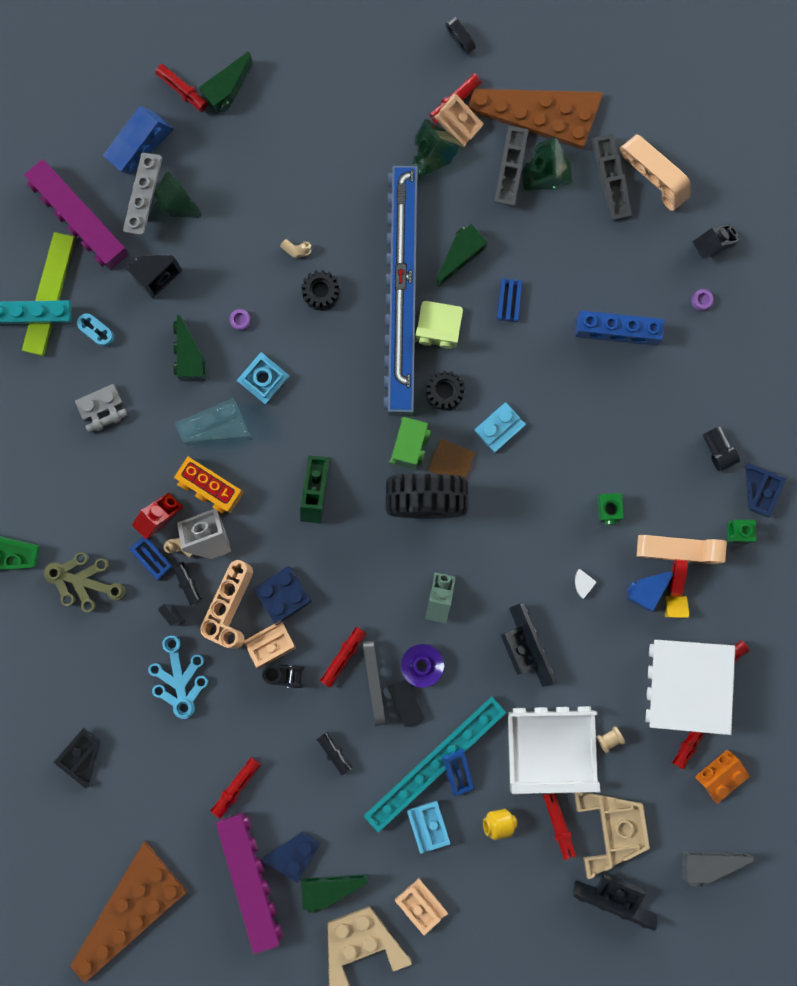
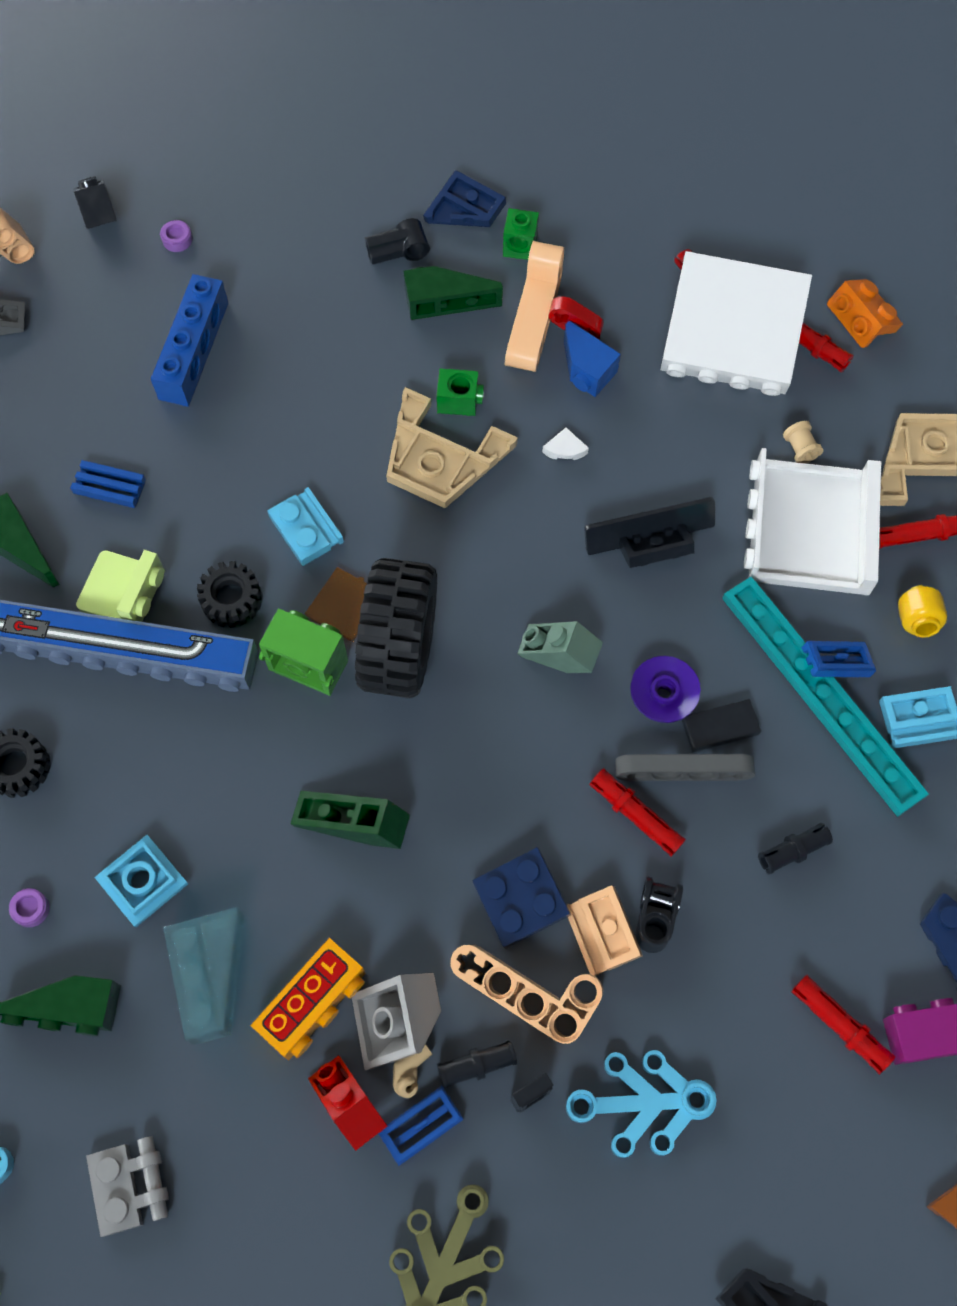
camera: 80 degrees left, 15 degrees down
(555, 498) = (436, 466): none -> tan wing
(676, 607) = (618, 332): yellow slope -> none
(685, 481) = (443, 292): none -> dark green slope

